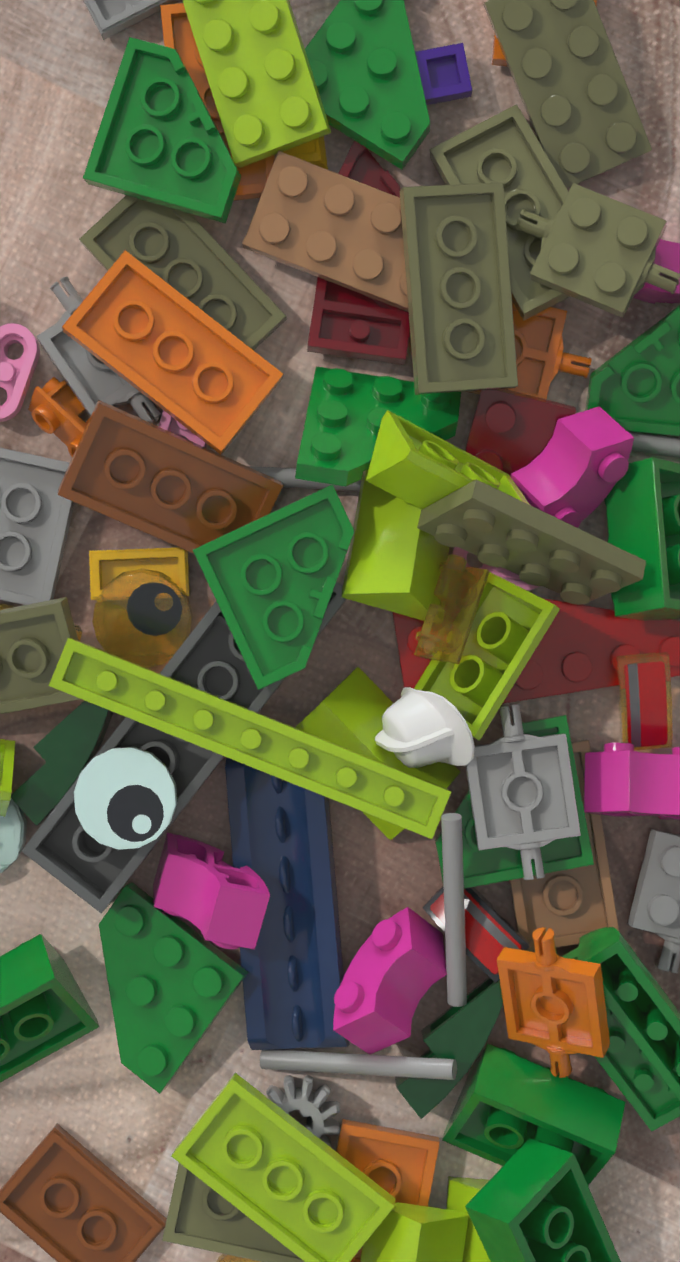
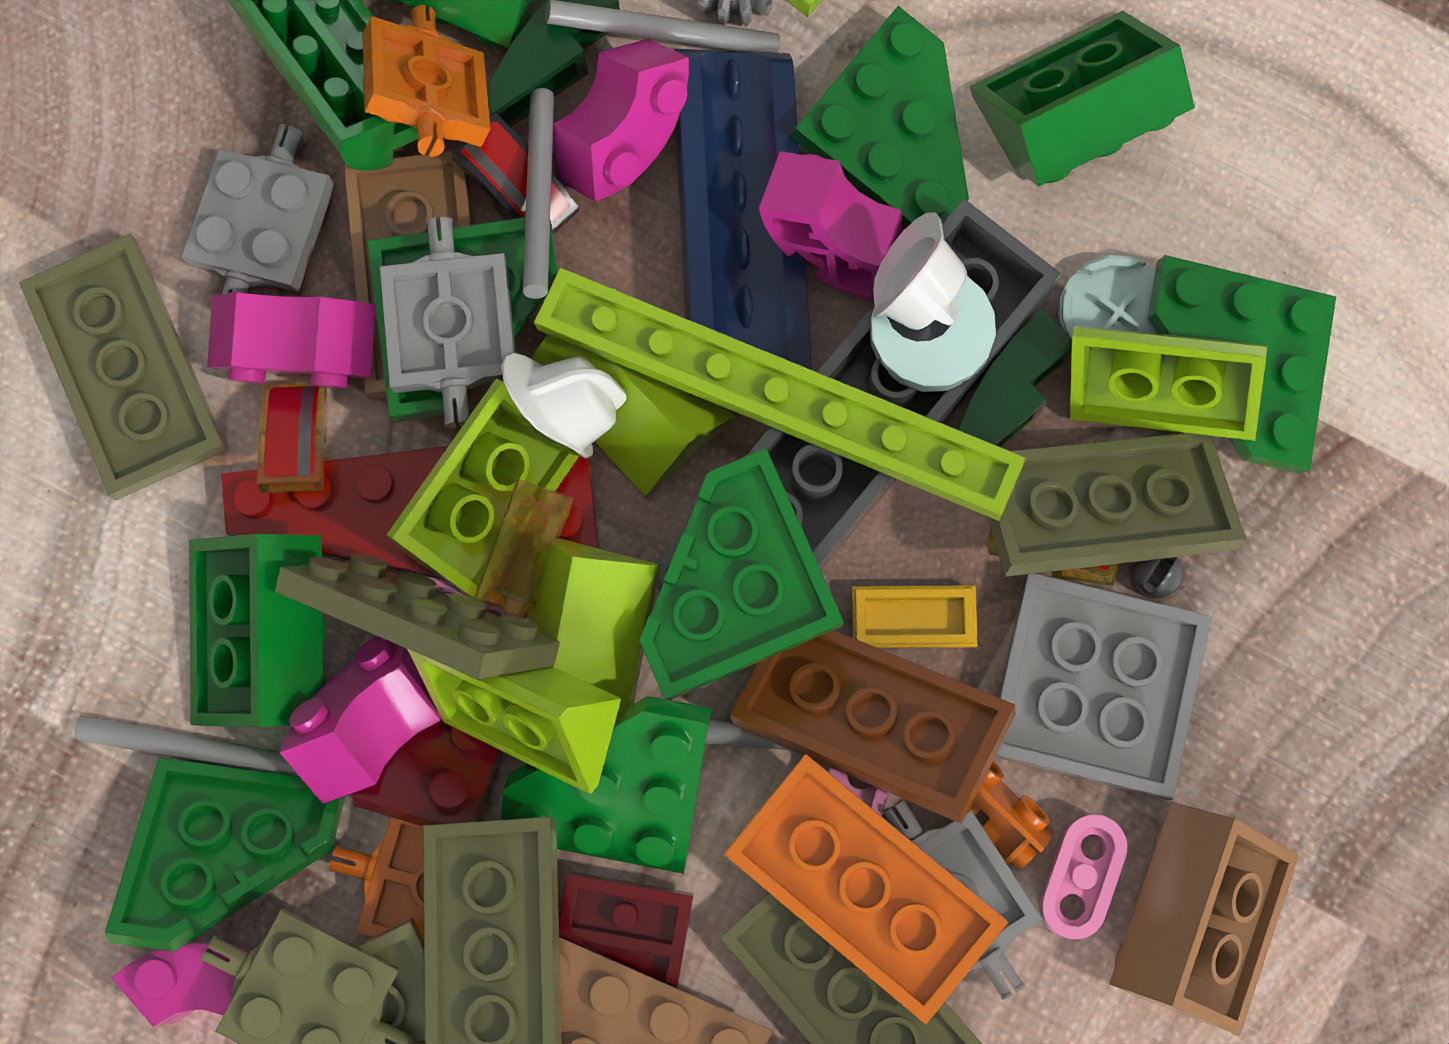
camera: 175 degrees left, 10 degrees down
(137, 834) = (919, 277): none -> white piece
(142, 617) = (910, 558): clear yellow tile -> none

